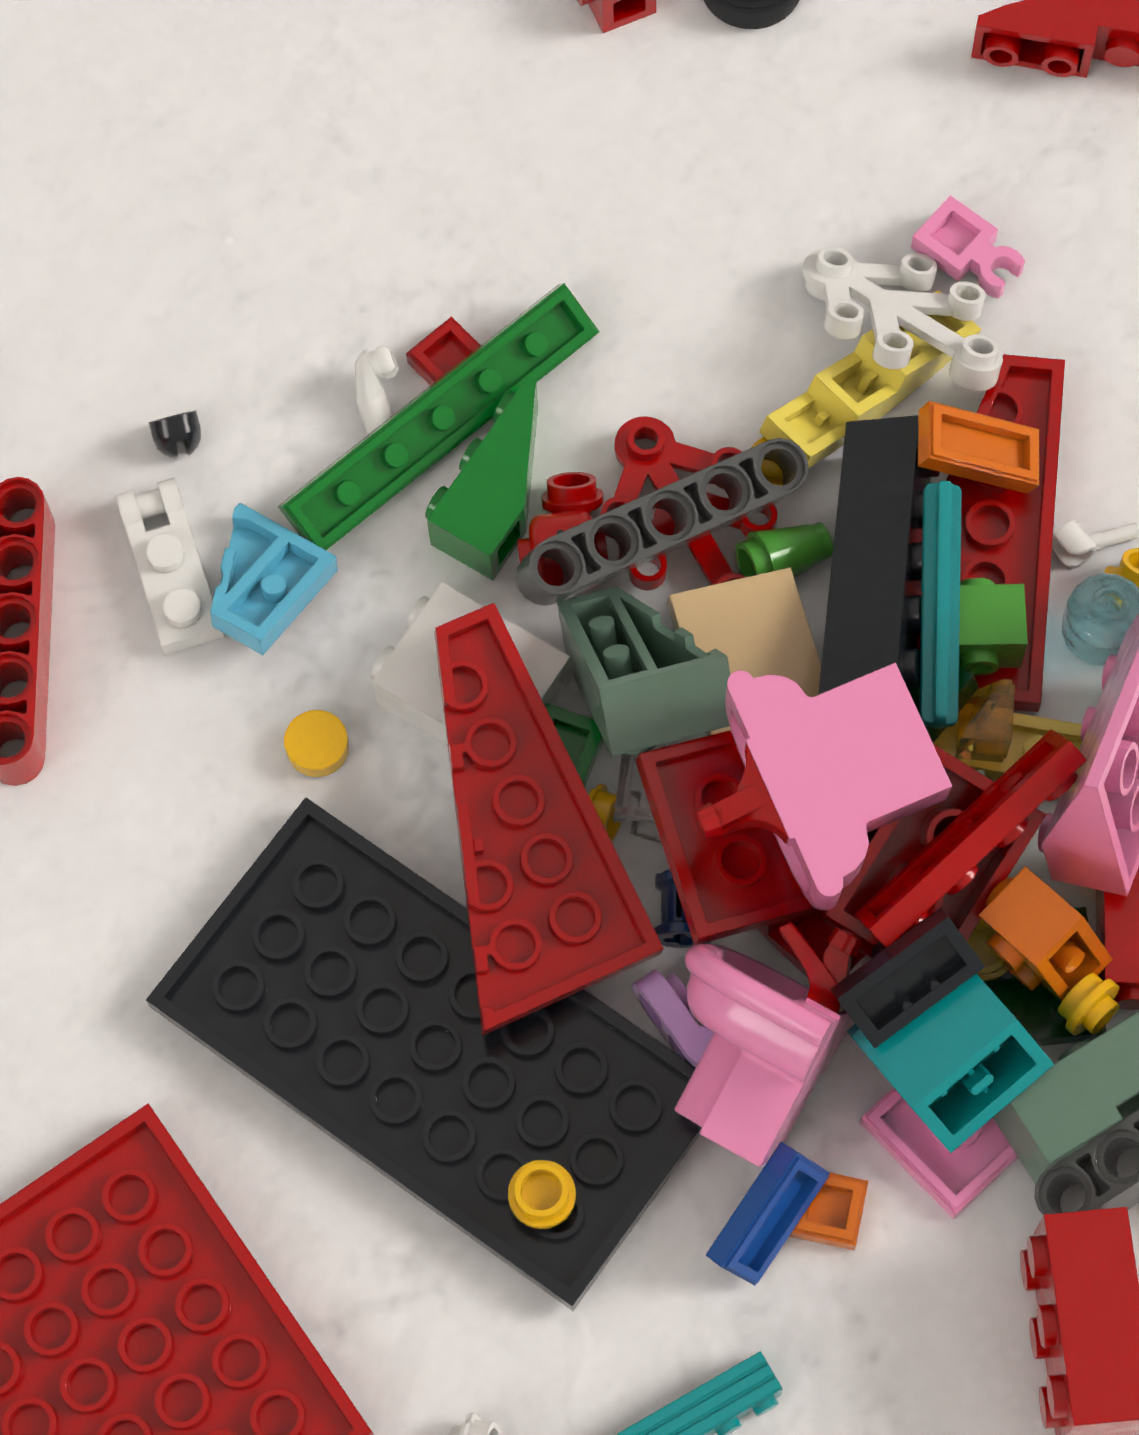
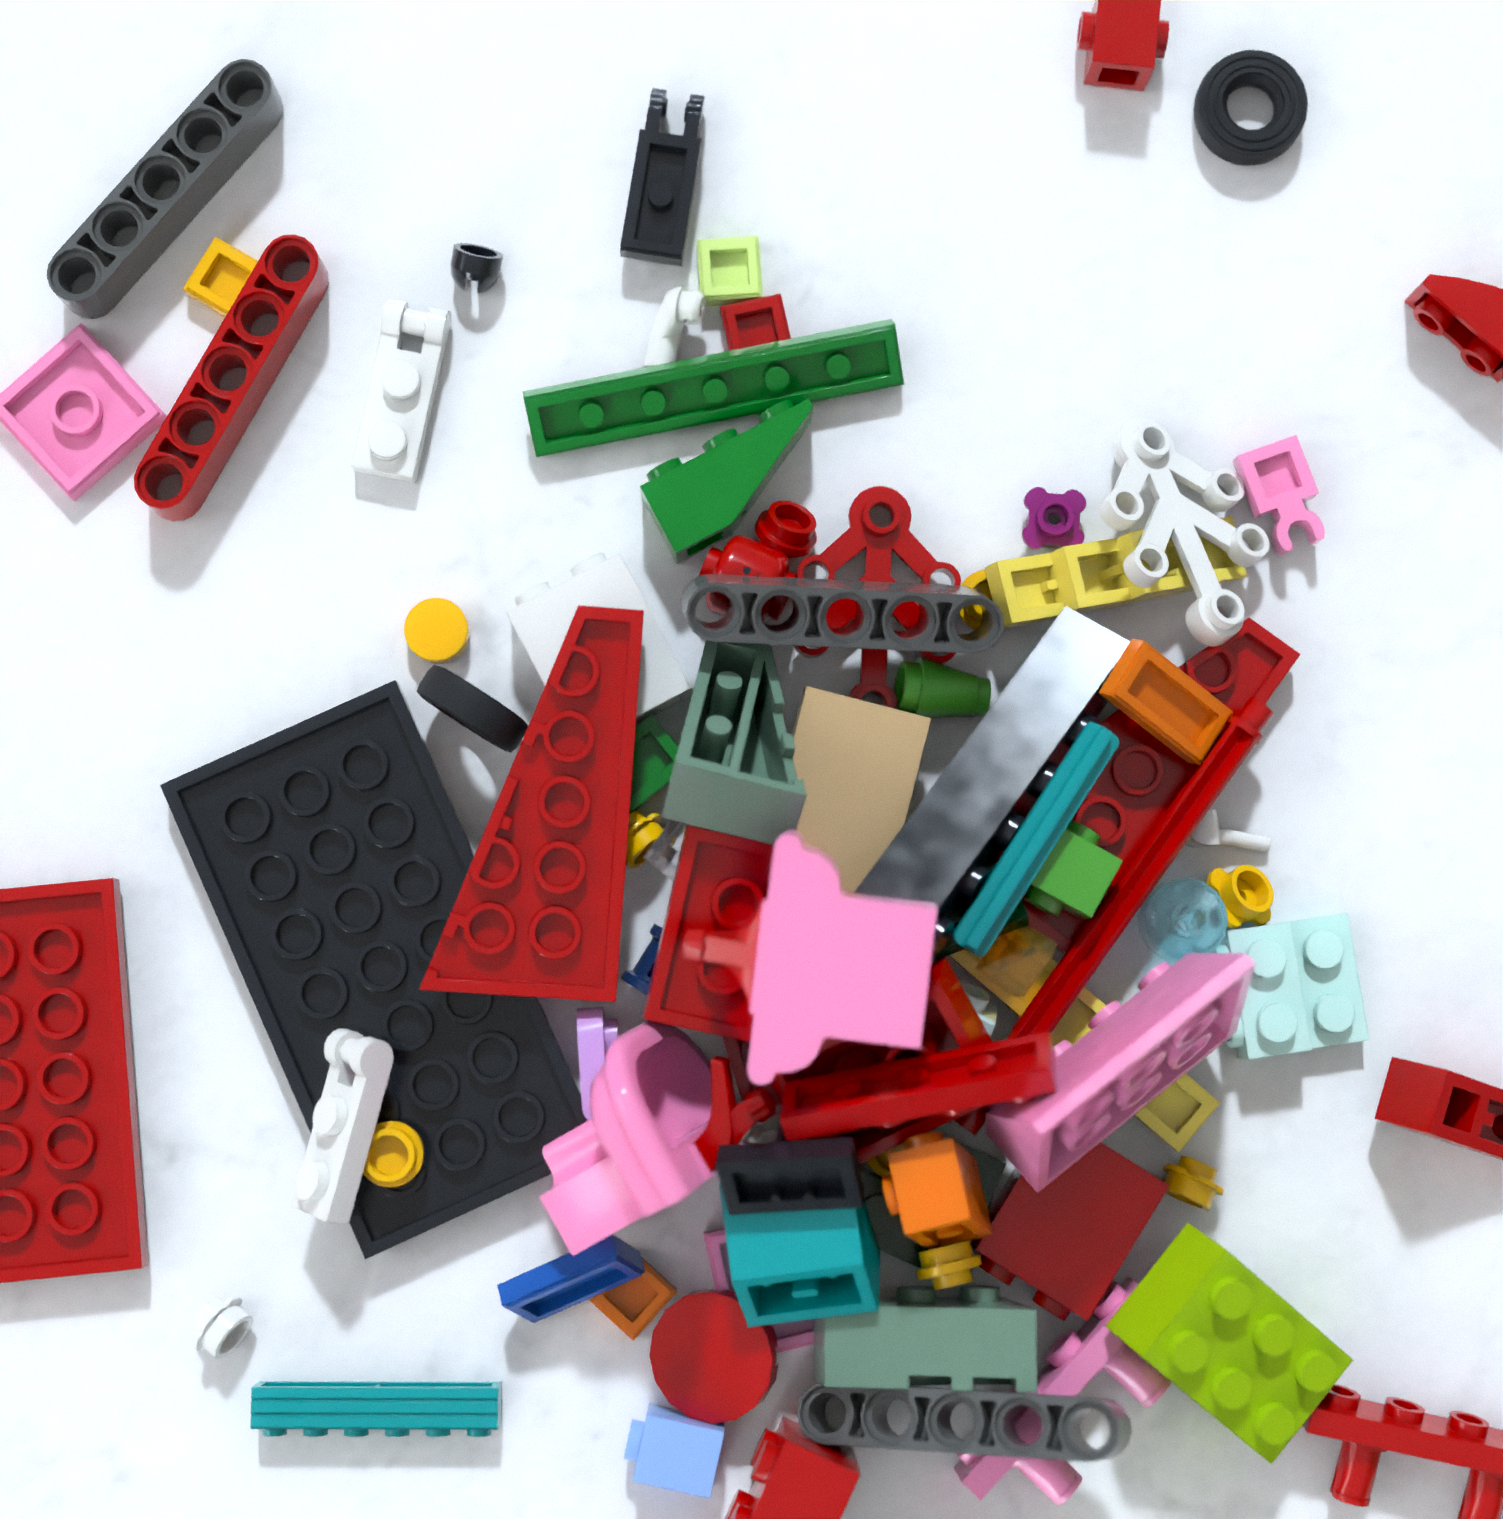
camera: 20 degrees right, 15 degrees up
(266, 579) = (474, 455): medium azure wing -> none
(300, 285) = (663, 184): none -> black hinge
(389, 779) = (472, 708): none -> black tyre
(395, 321) = (729, 270): none -> yellowish green tile
(485, 1188) = (343, 1125): none -> white plate
(787, 385) = (1040, 505): none -> magenta plate
(935, 1212) = (710, 1357): none -> red tile
(953, 1315) = (675, 1451): none -> light blue brick
(1047, 596) = (1138, 880): none -> red piece

